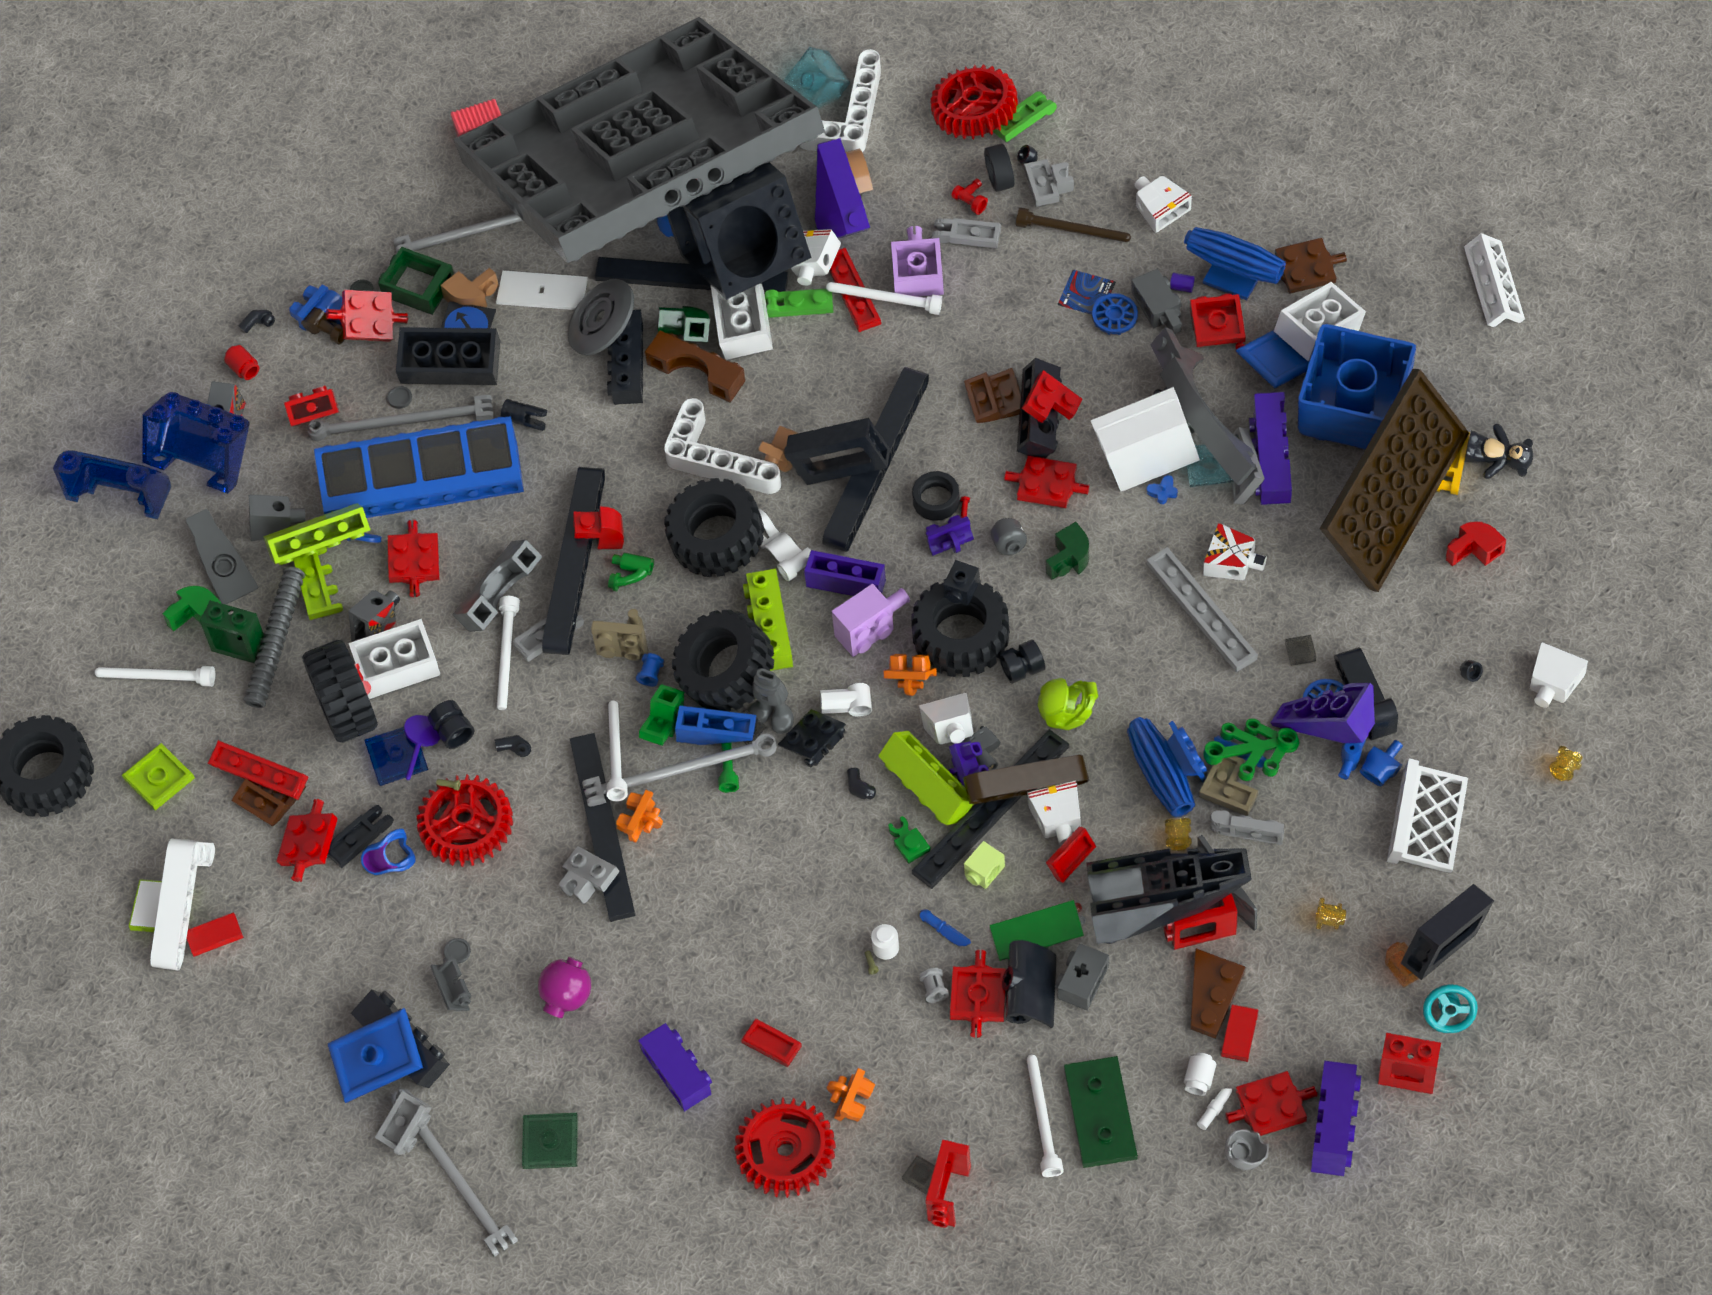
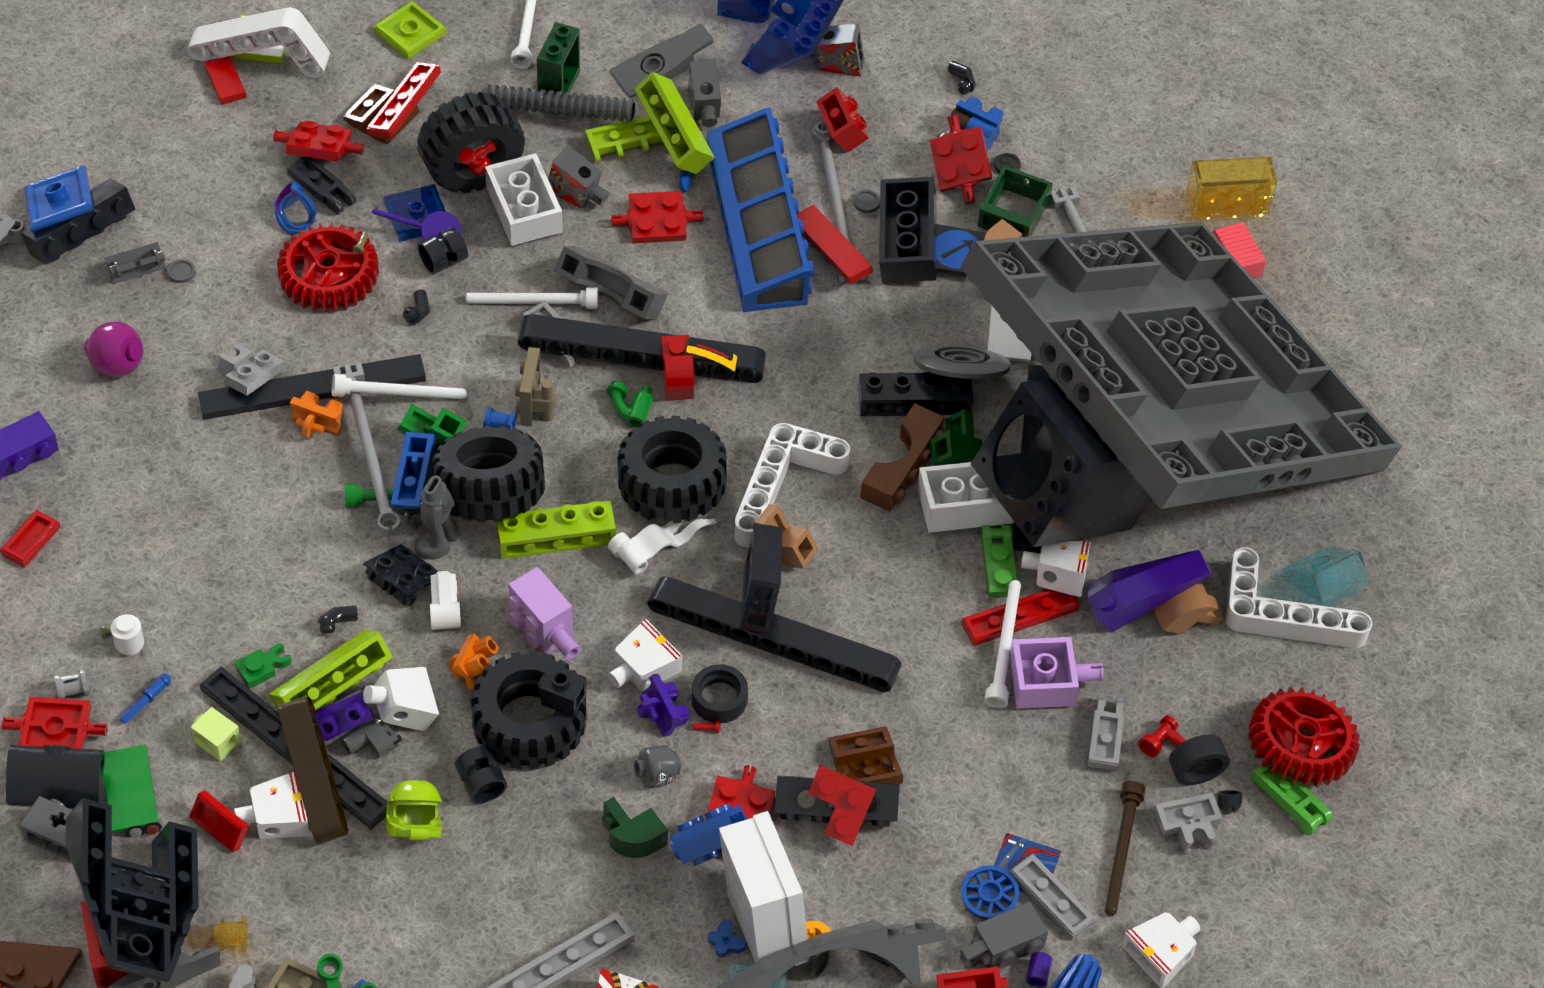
camera: 80 degrees right, 5 degrees down
(191, 604) = (602, 42): green brick -> none
(241, 362) = (905, 65): red brick -> none
(415, 118) = (1231, 187): none -> clear yellow piece
(467, 410) = (834, 245): none -> red tile
(521, 414) = (838, 302): black hinge -> none
(591, 497) = (712, 352): none -> sticker
(842, 573) = (606, 597): dark purple brick -> none
(902, 549) = (644, 655): none -> white torso
(1085, 485) = (700, 838): none -> blue brick
(1117, 273) = (1052, 897): none -> light grey tile
(1167, 763) = (327, 922): blue plate -> none

